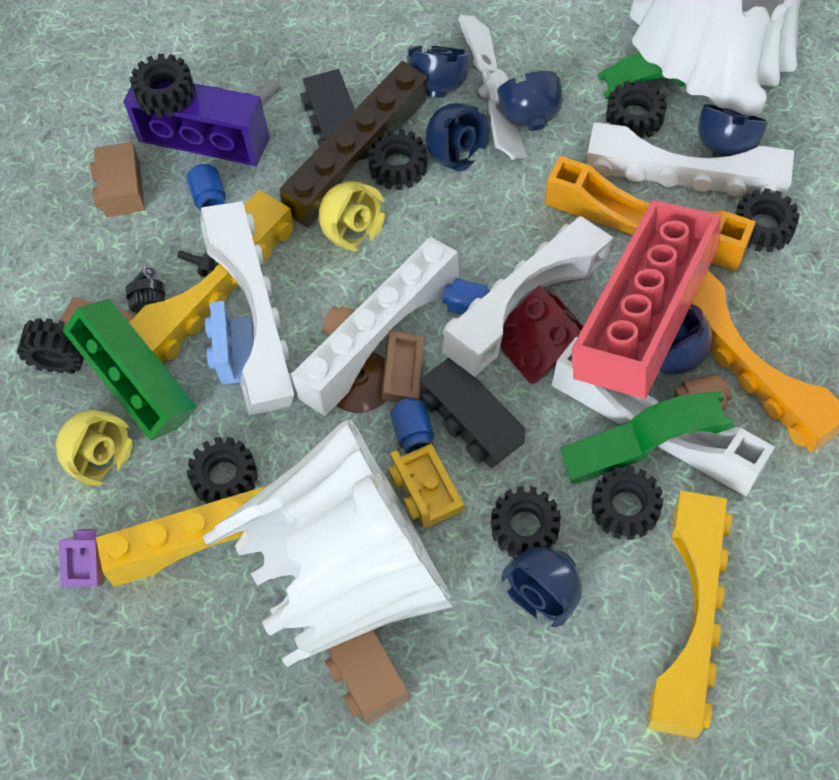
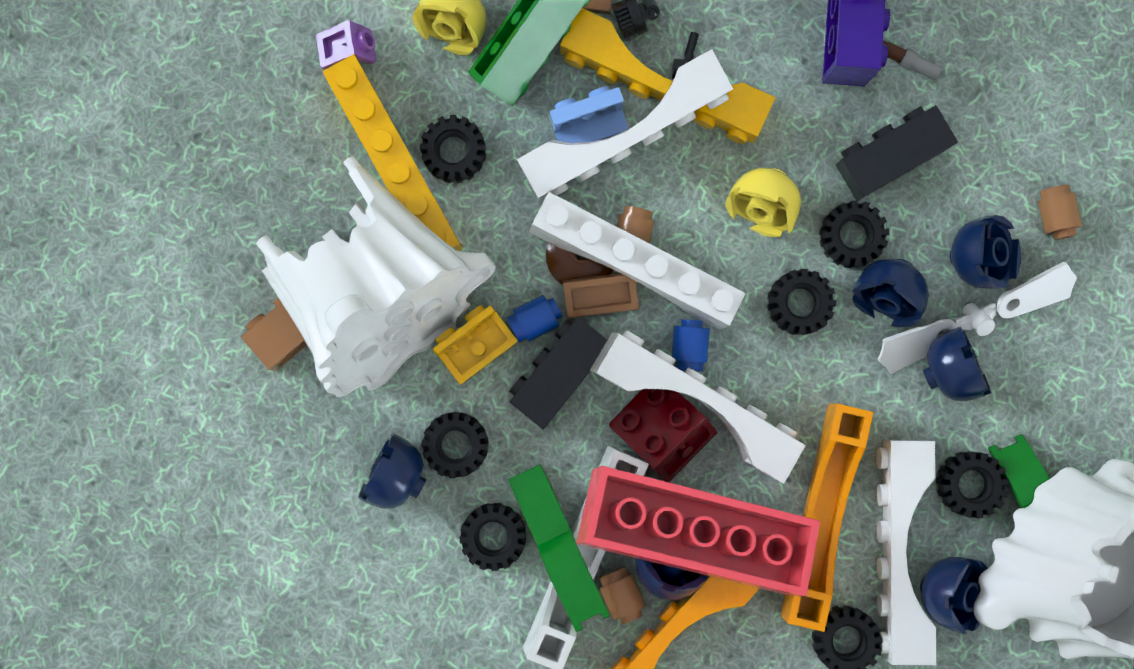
camera: 75 degrees right, 25 degrees up
(205, 186) = (776, 38): blue brick -> none
(384, 108) = (862, 184): dark brown arch -> none
(416, 19) = (1059, 212): none -> medium nougat brick
(451, 222) = (822, 302): none -> black tyre
(680, 692) = (320, 606): yellow arch -> none

